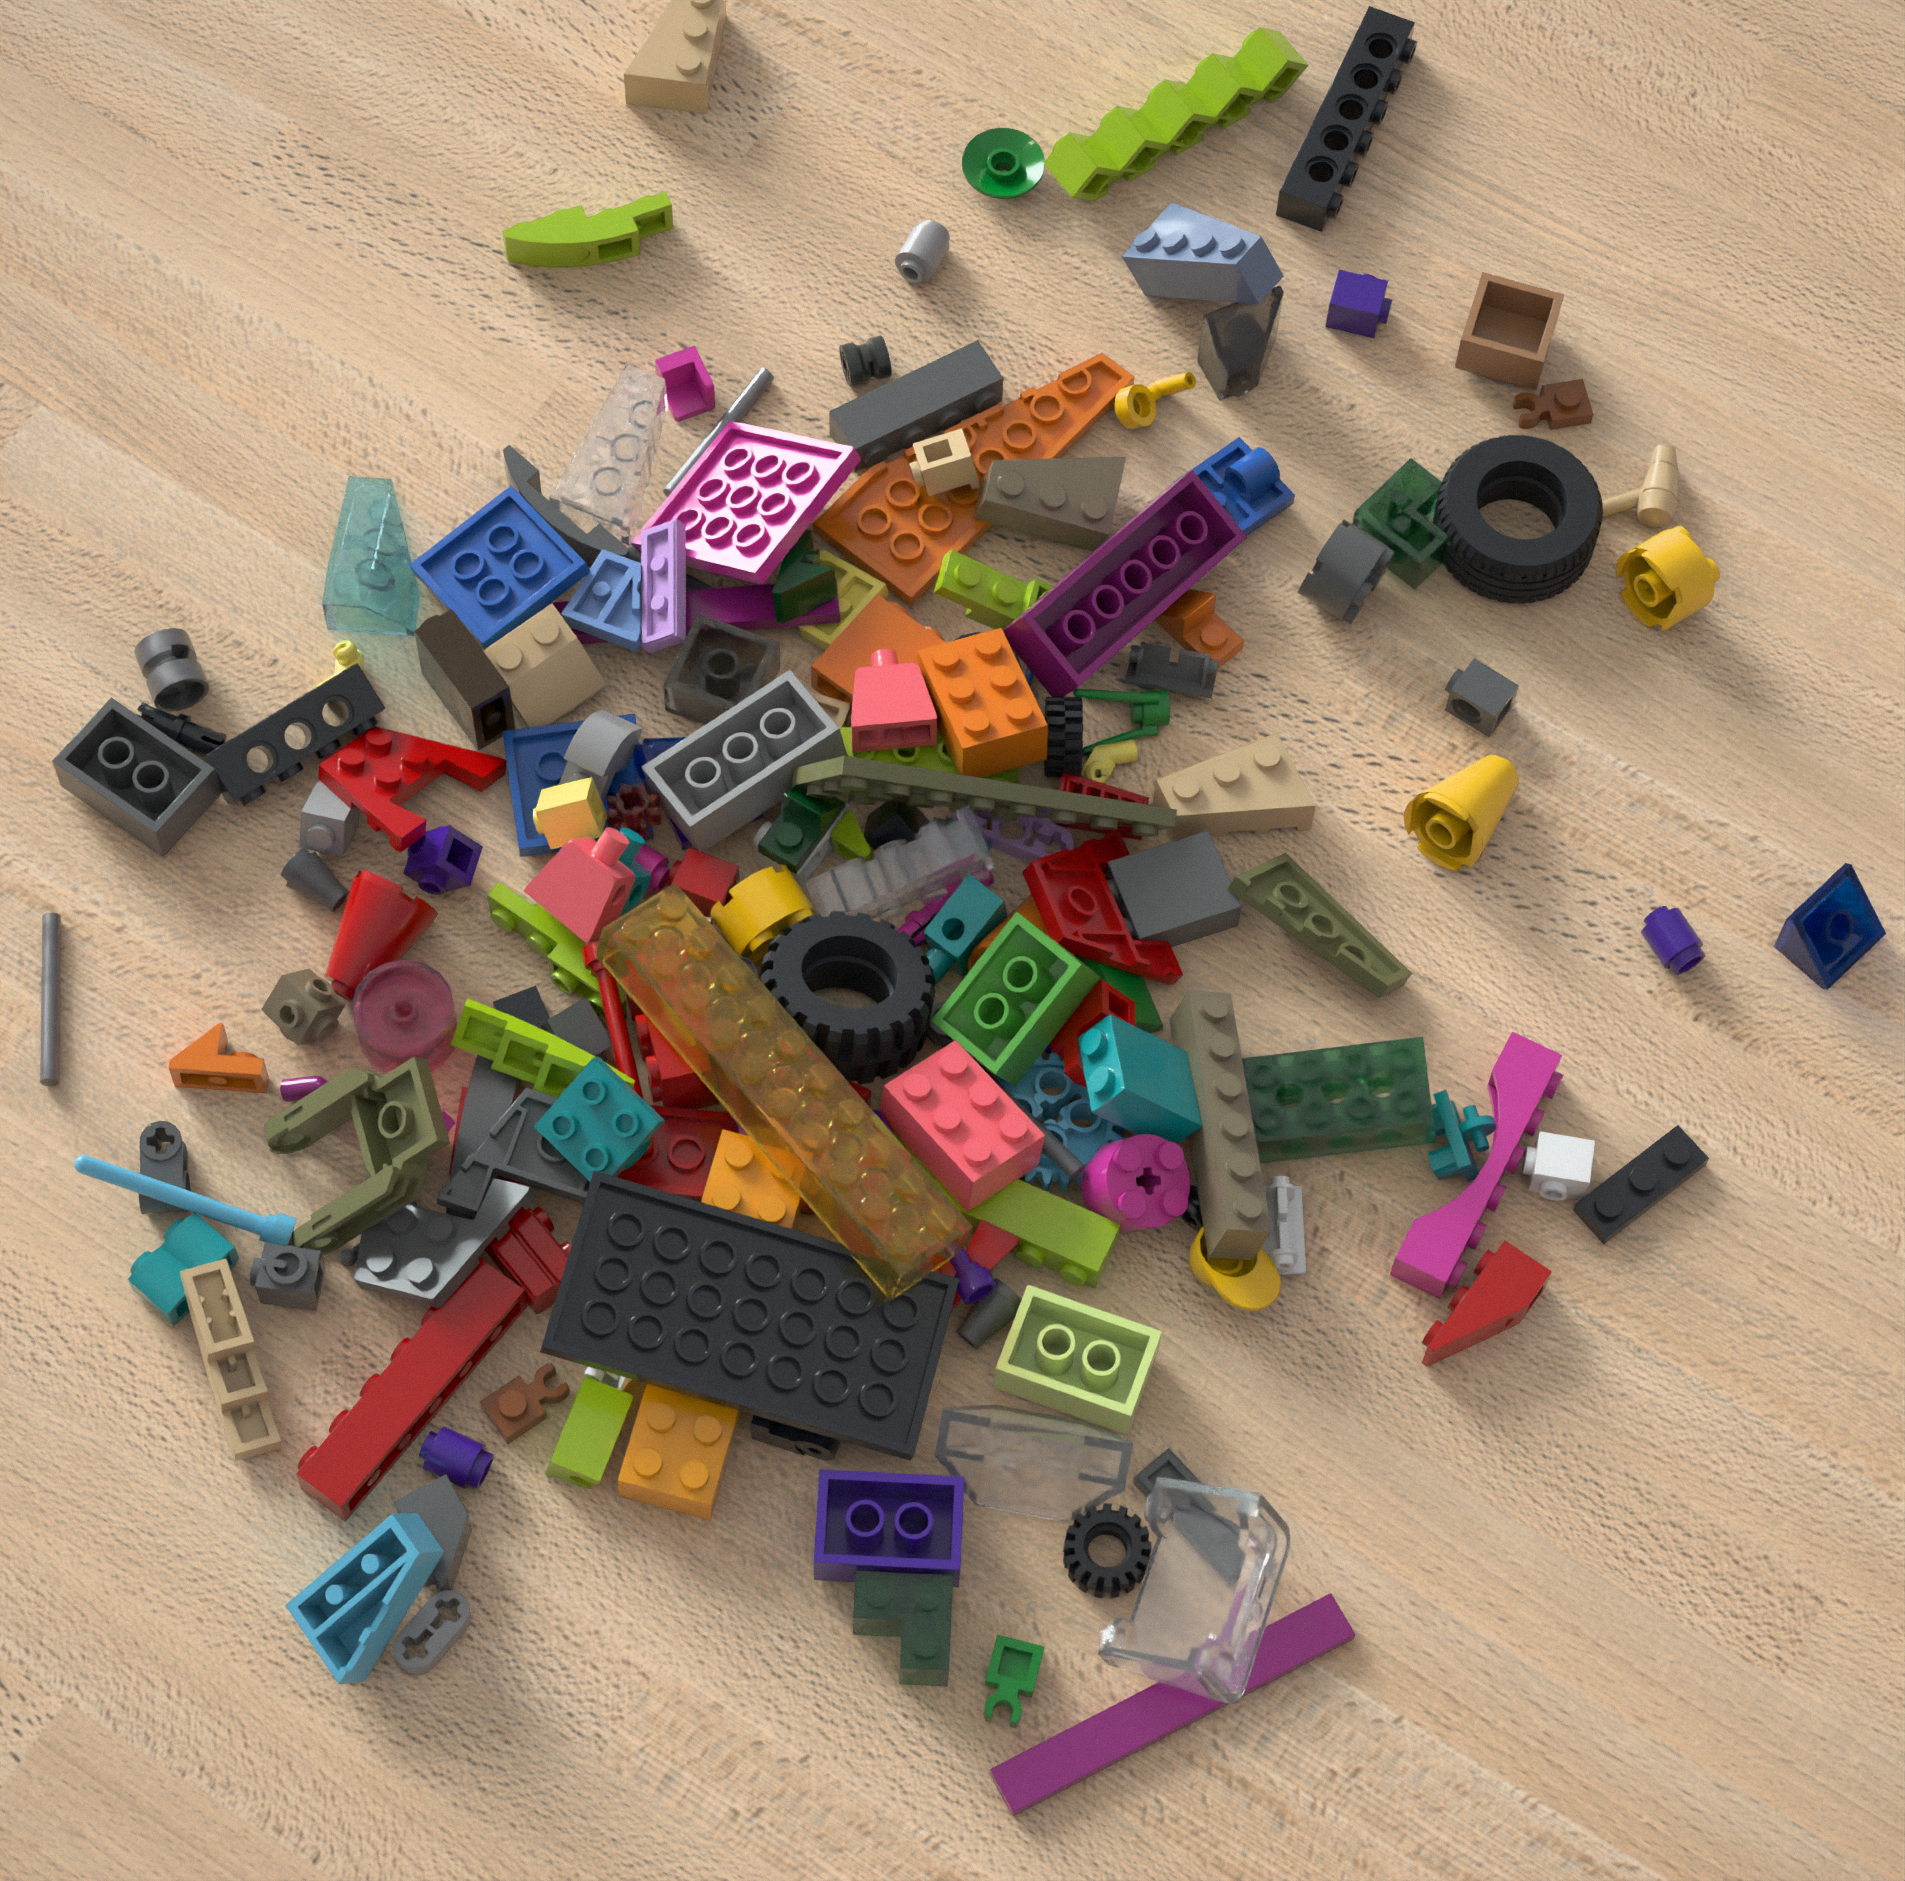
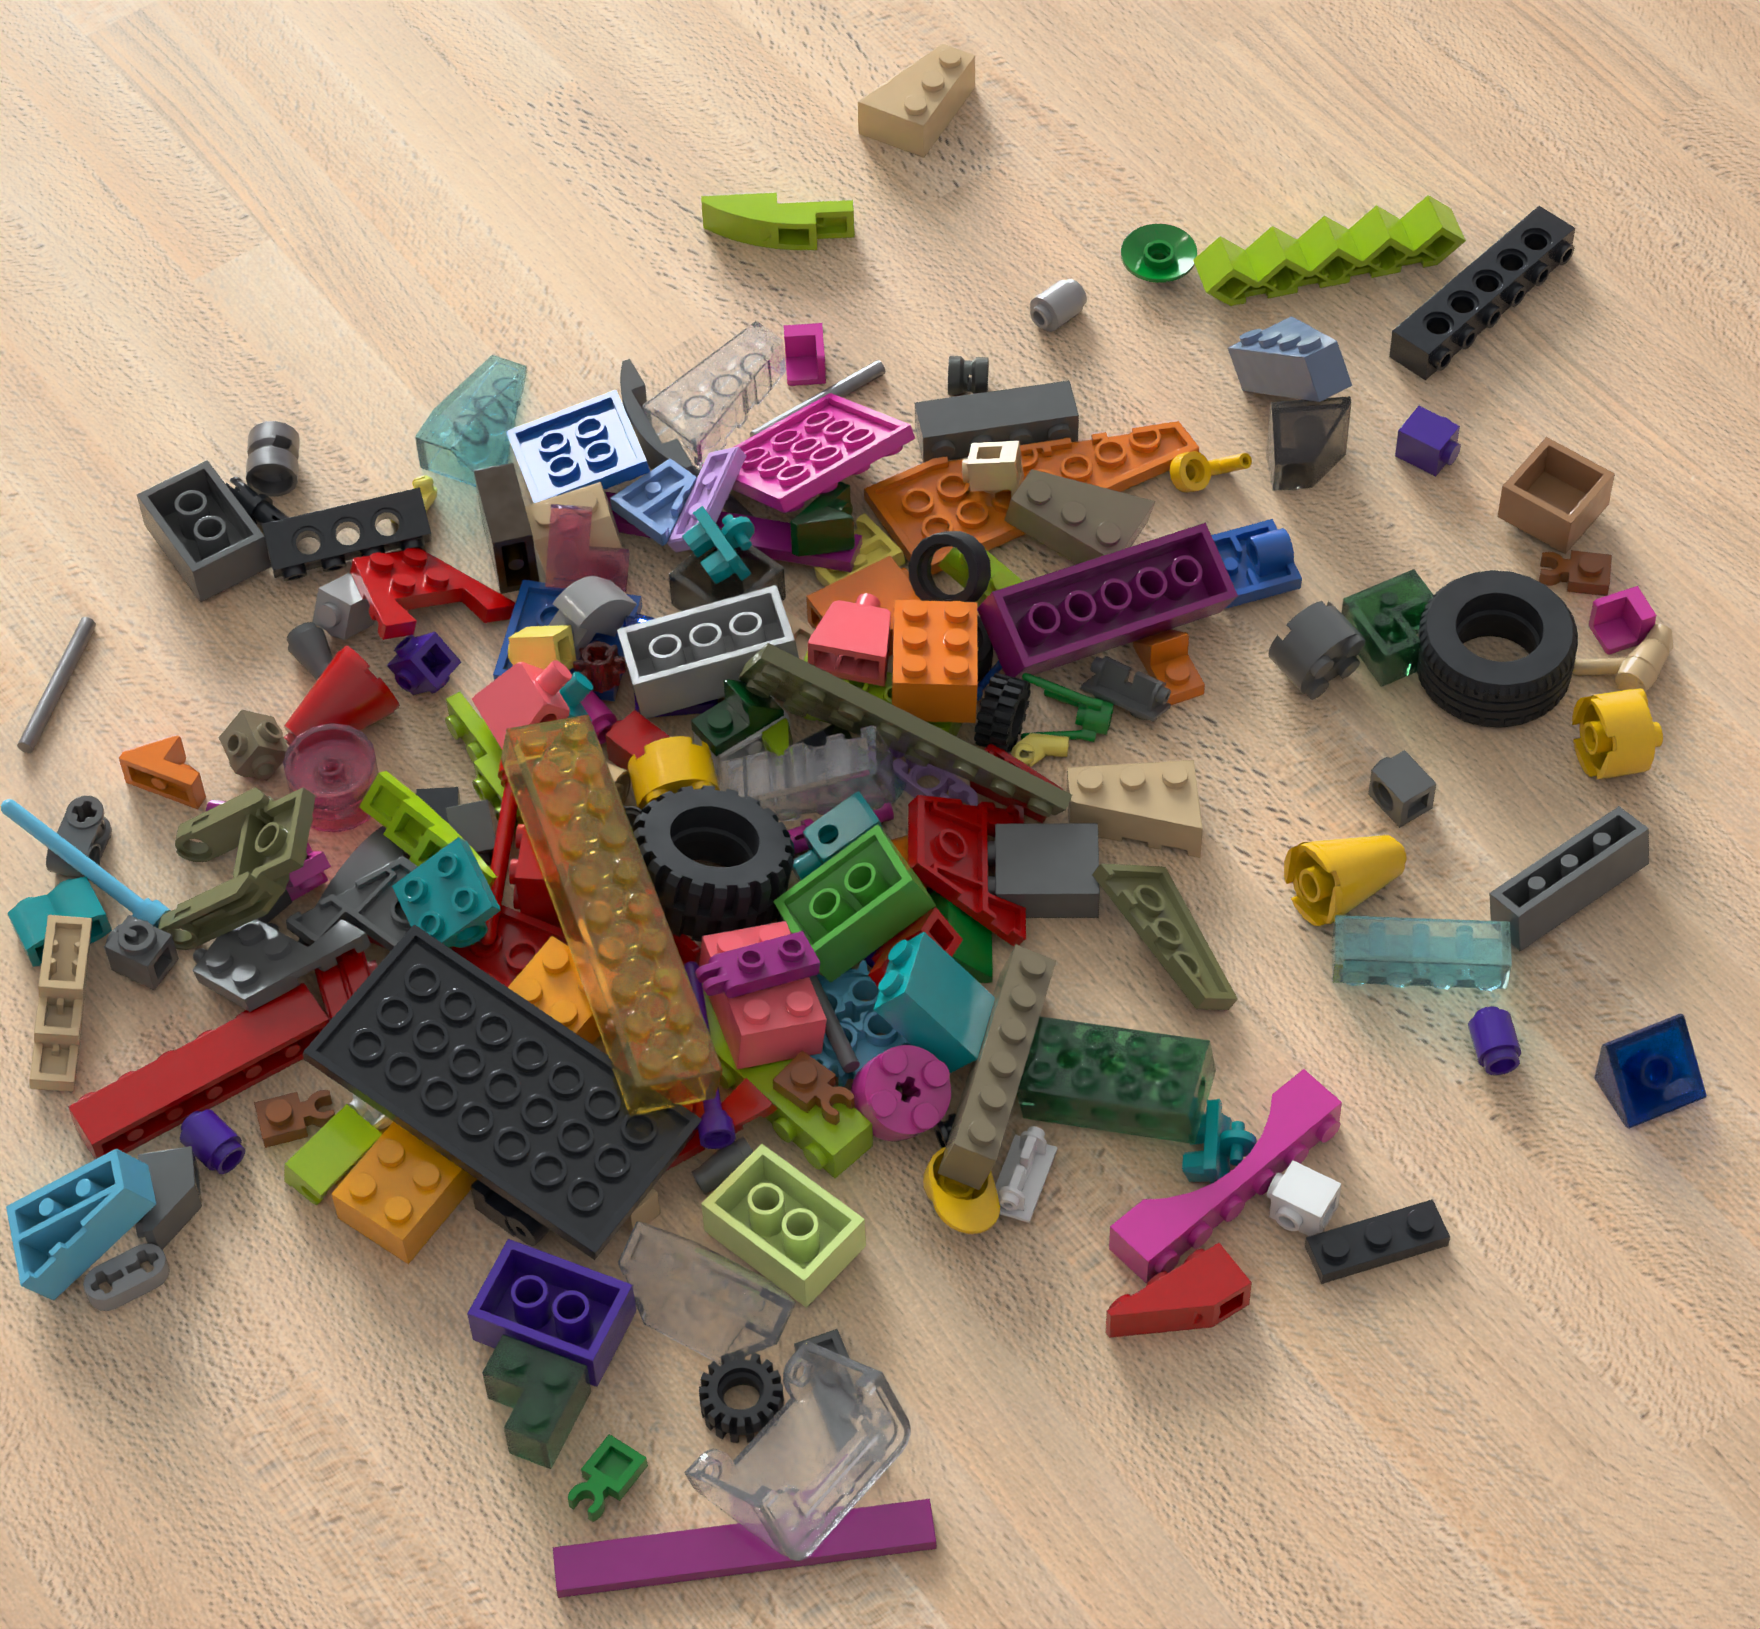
camera: 25 degrees right, 10 degrees down
(554, 697) = (572, 557): none -> clear pink plate
(691, 631) = (707, 534): none -> teal hips
(961, 1102) = (759, 966): none -> magenta hinge
(971, 570) = (974, 554): none -> black tyre
(1045, 1203) = (811, 1084): none -> dark orange plate
(1568, 869) = (1421, 952): none -> clear light blue brick
(1621, 449) = (1621, 620): none -> dark pink panel
(1681, 747) = (1571, 877): none -> dark grey brick

